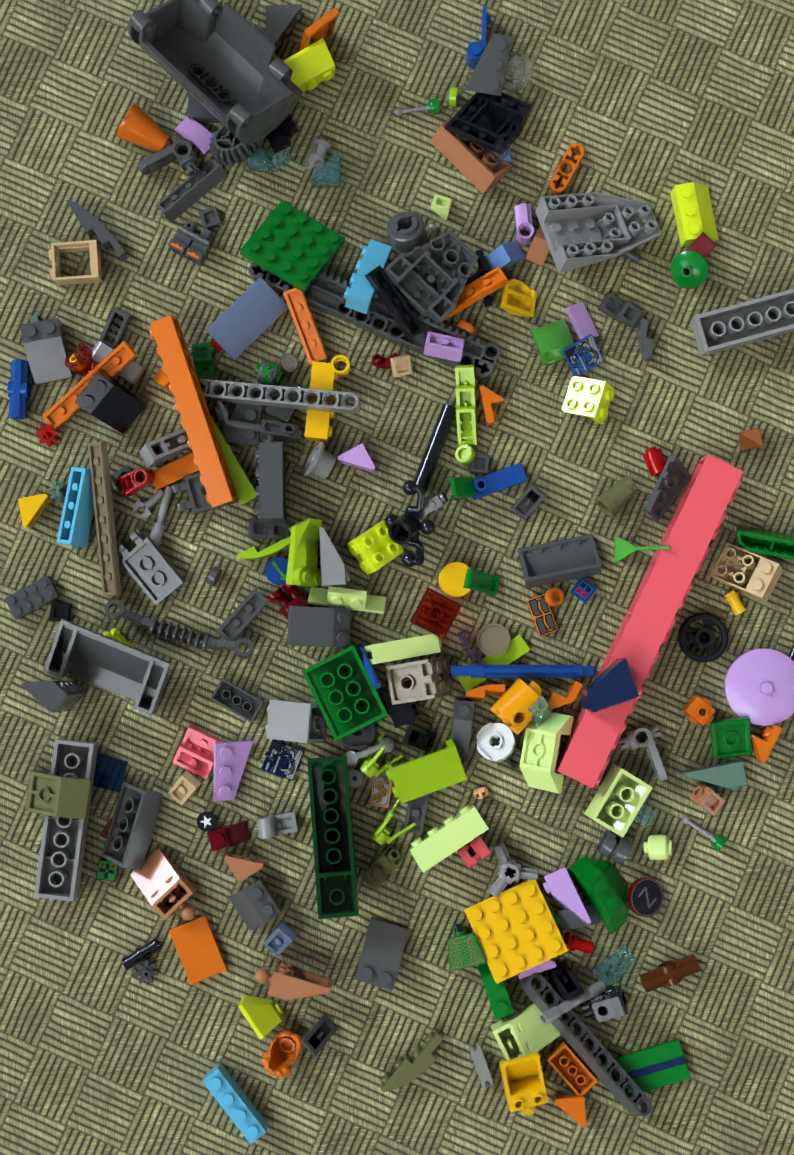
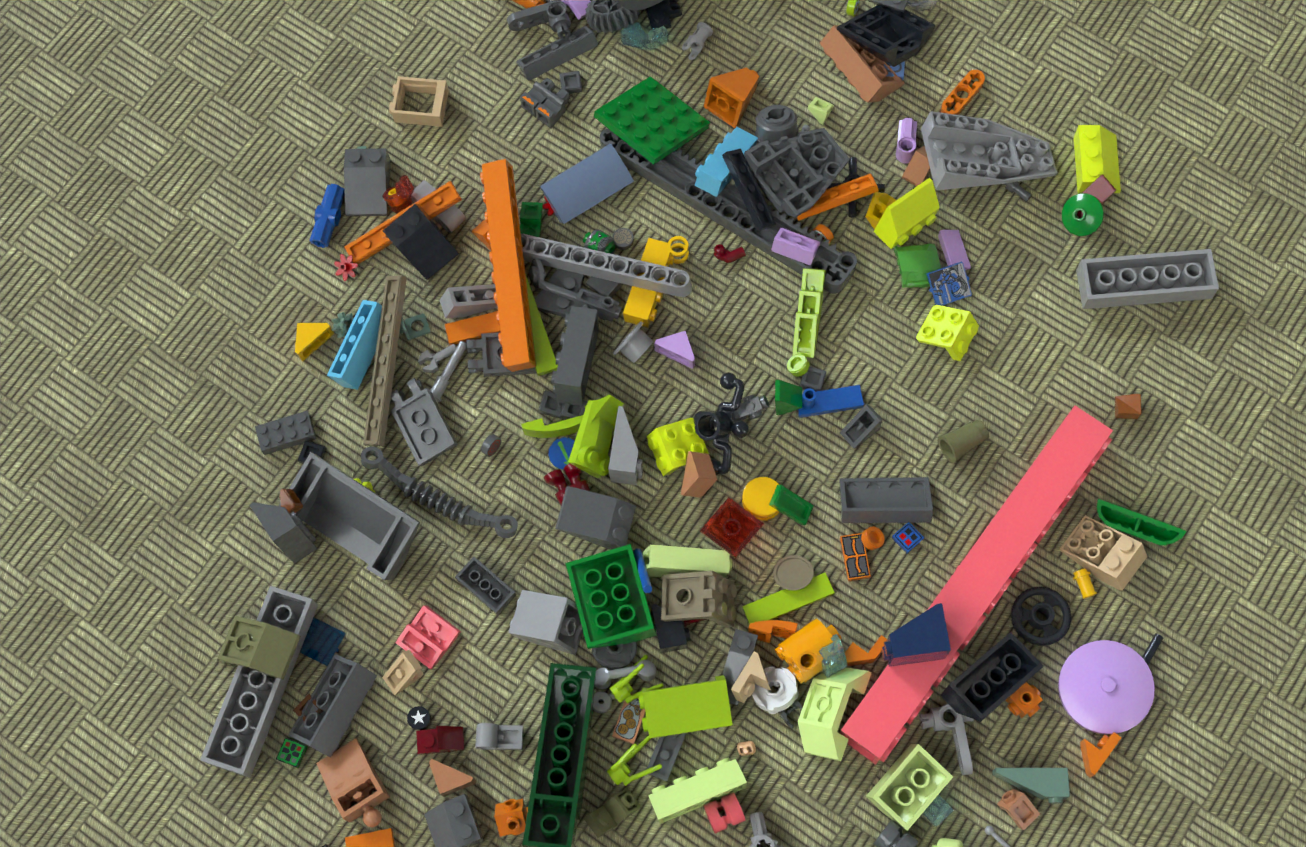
camera: 20 degrees right, 15 degrees down
(53, 665) = (290, 500): none -> dark orange slope
(94, 227) = (448, 71): dark grey slope -> none
(109, 324) = (444, 162): dark grey slope -> none
(132, 482) = (424, 329): red piece -> none
(228, 768) = (458, 659): lavender wing -> none
(243, 615) = (513, 493): dark grey plate -> none
(282, 759) = (522, 665): piece -> none
(302, 888) = (511, 817): none -> orange brick
(305, 325) = (648, 200): orange tile -> none
(329, 174) = (704, 59): clear light blue slope -> none
(347, 599) = (636, 493): yellowish green bracket -> none
(359, 207) = (730, 94): none -> orange slope
(398, 570) = (698, 475): none -> nougat slope
(401, 365) = (744, 260): tan tile -> none
(419, 737) = (684, 667): black slope -> none
(432, 108) = (827, 12): hinge -> none
(435, 446) = (767, 349): black piece -> none
(473, 653) = (766, 582): clear purple slope -> none
(476, 733) = (751, 674): none -> tan slope
(489, 399) = (836, 313): orange slope -> none
(505, 256) = (881, 167): medium blue slope -> none
(522, 671) = (813, 611): blue piece -> none
(539, 300) = (908, 215): none -> neon yellow slope
(618, 310) = (1000, 247): dark grey slope -> none
(624, 548) = (963, 499): bright green piece -> none
(645, 344) = (1021, 282): dark grey slope -> none
(654, 460) = (1014, 410): red brick -> none
(668, 487) = (1024, 440): dark grey wing -> none
(672, 702) = (992, 679): none -> black slope
(730, 737) = (1057, 739): green tile -> none

